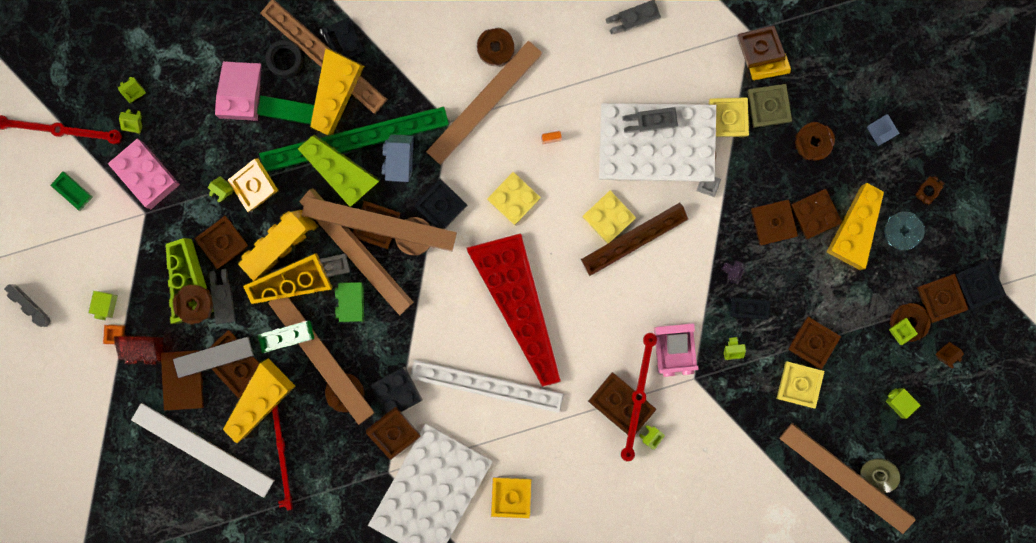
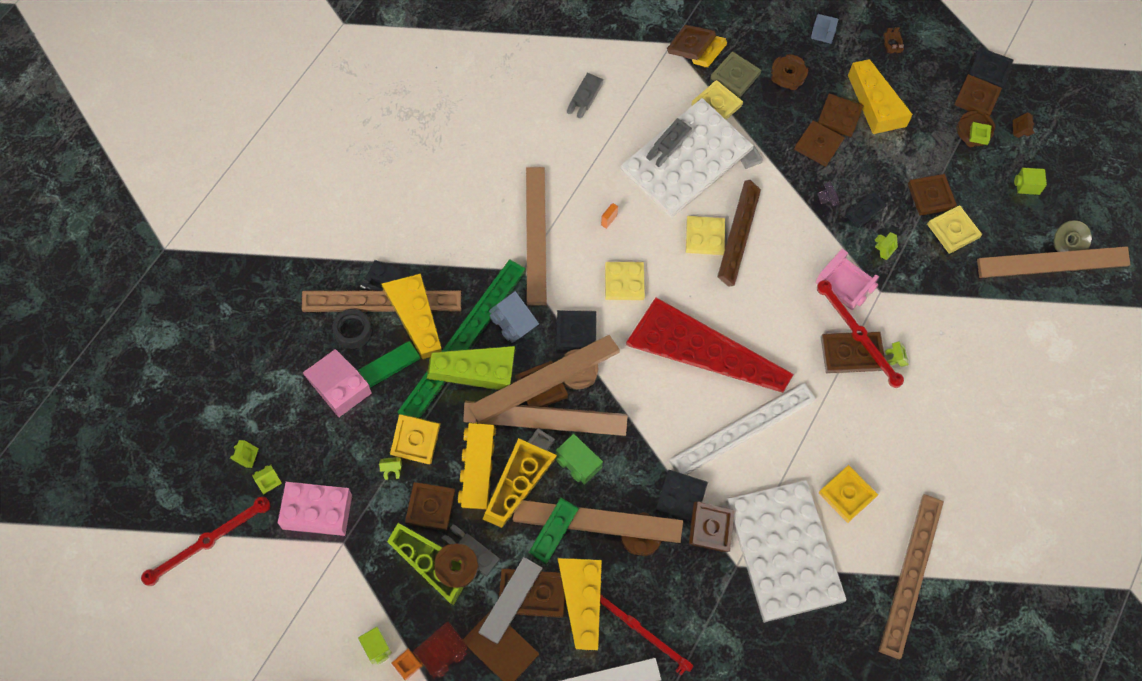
camera: 45 degrees left, 20 degrees down
(71, 191) = (262, 579): green tile -> none
(495, 36) = (509, 200): reddish brown plate -> none
(677, 343) = (844, 274): light grey tile -> none
(912, 223) = (904, 85): clear light blue plate -> none

